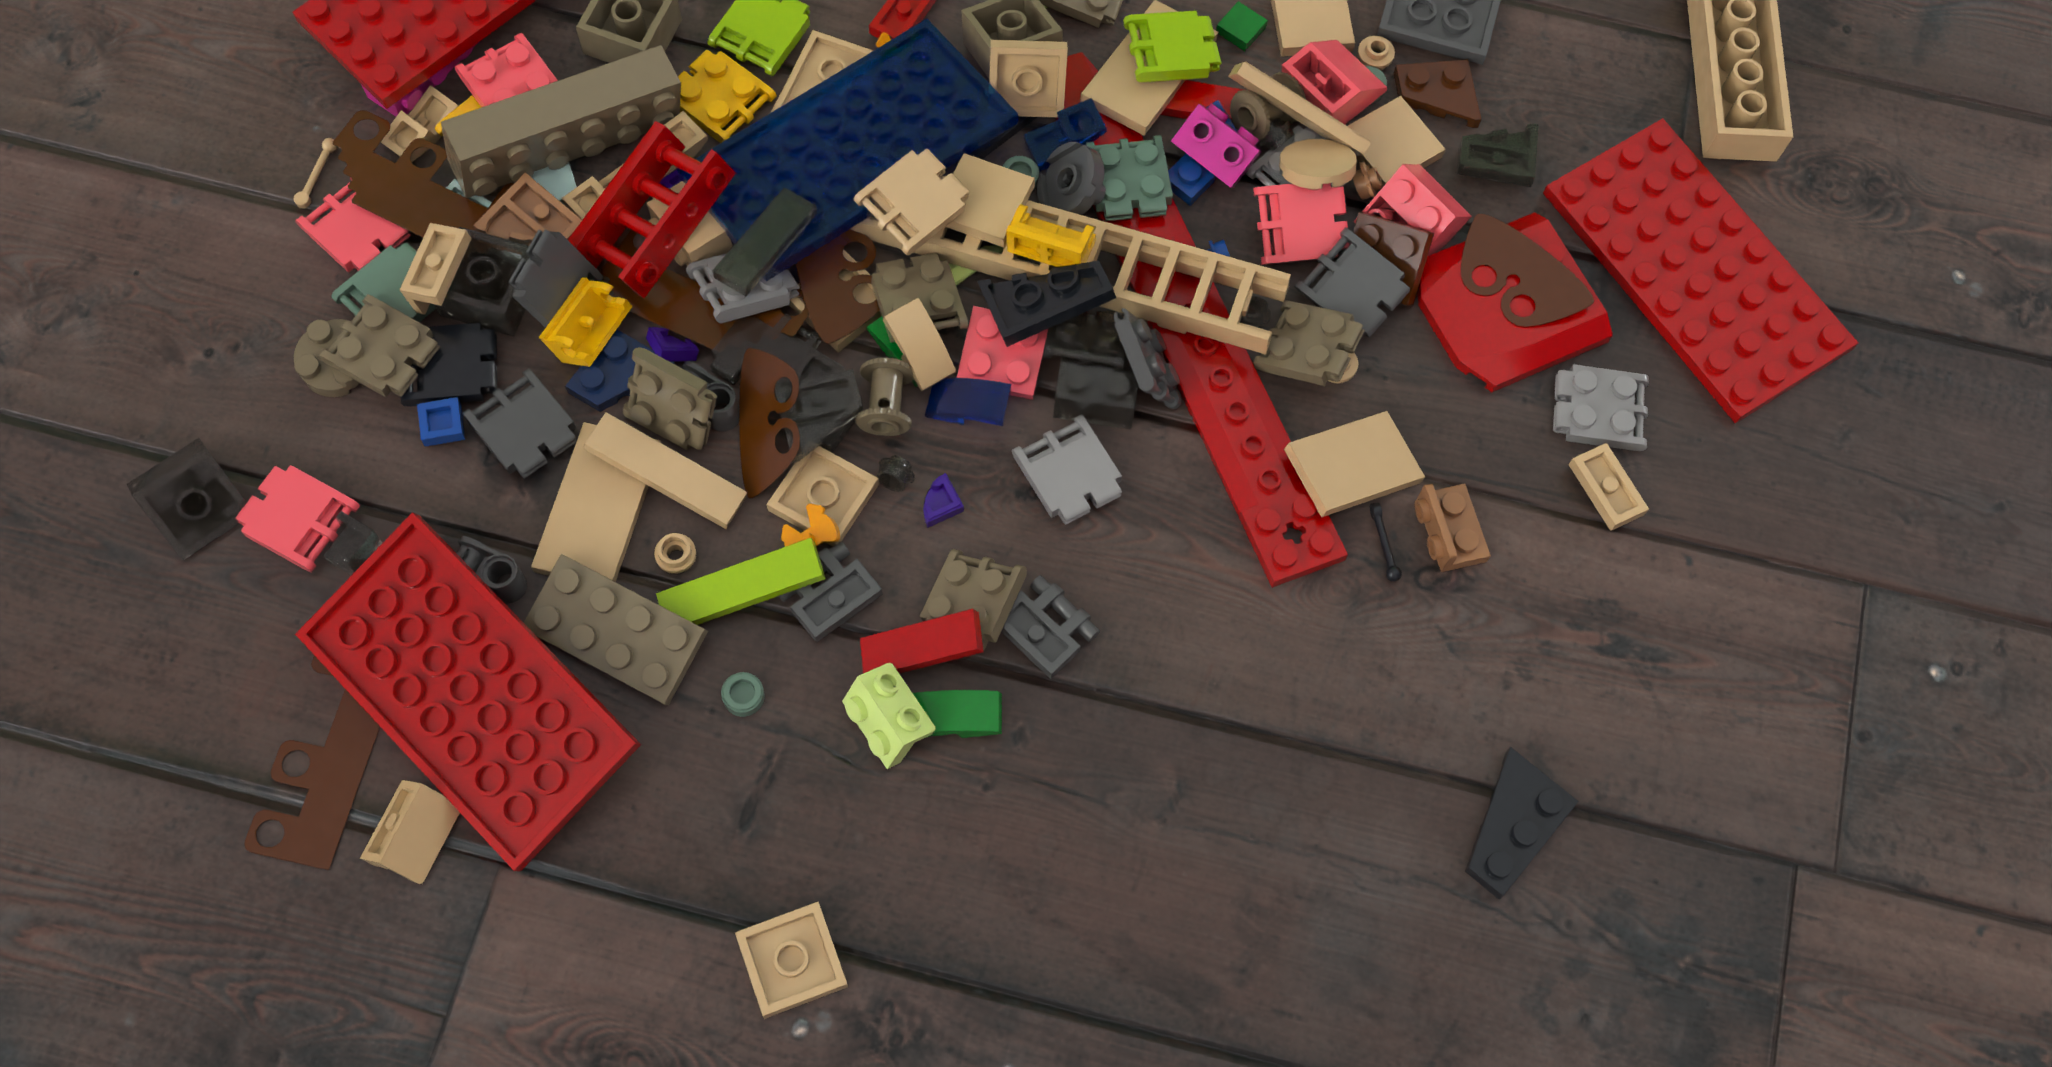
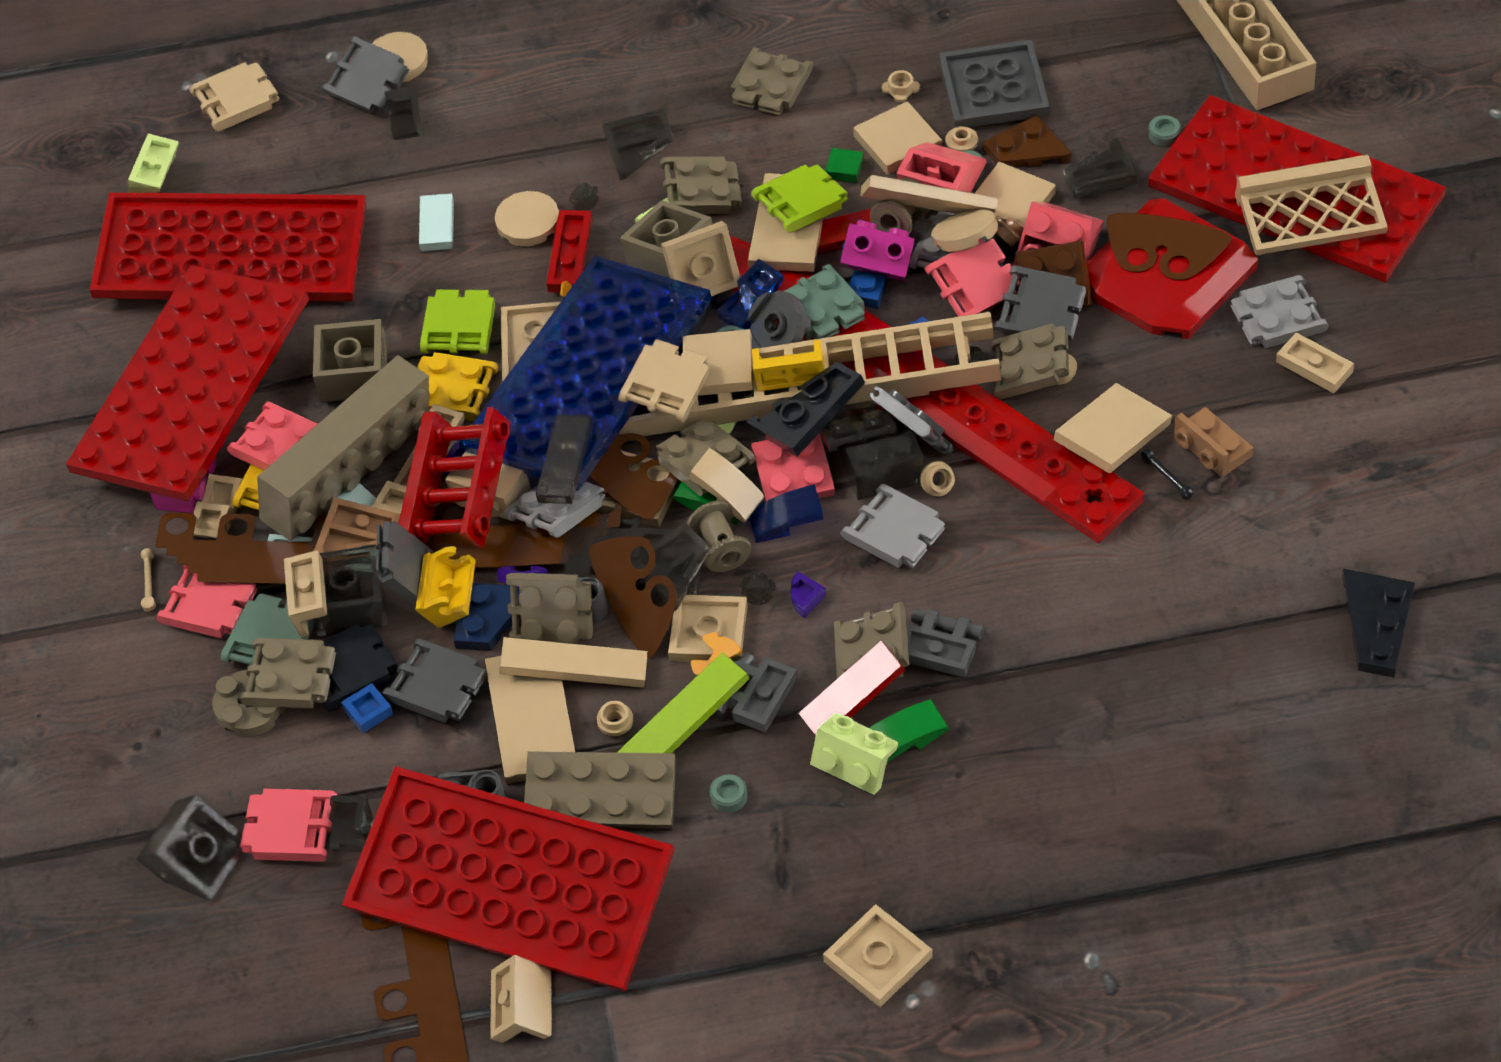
camera: 15 degrees left, 15 degrees down
(1150, 441) = (946, 478): none -> tan plate
(1593, 137) = (1164, 130): none -> sand green tile
(1708, 271) = (1300, 181): none -> tan fence

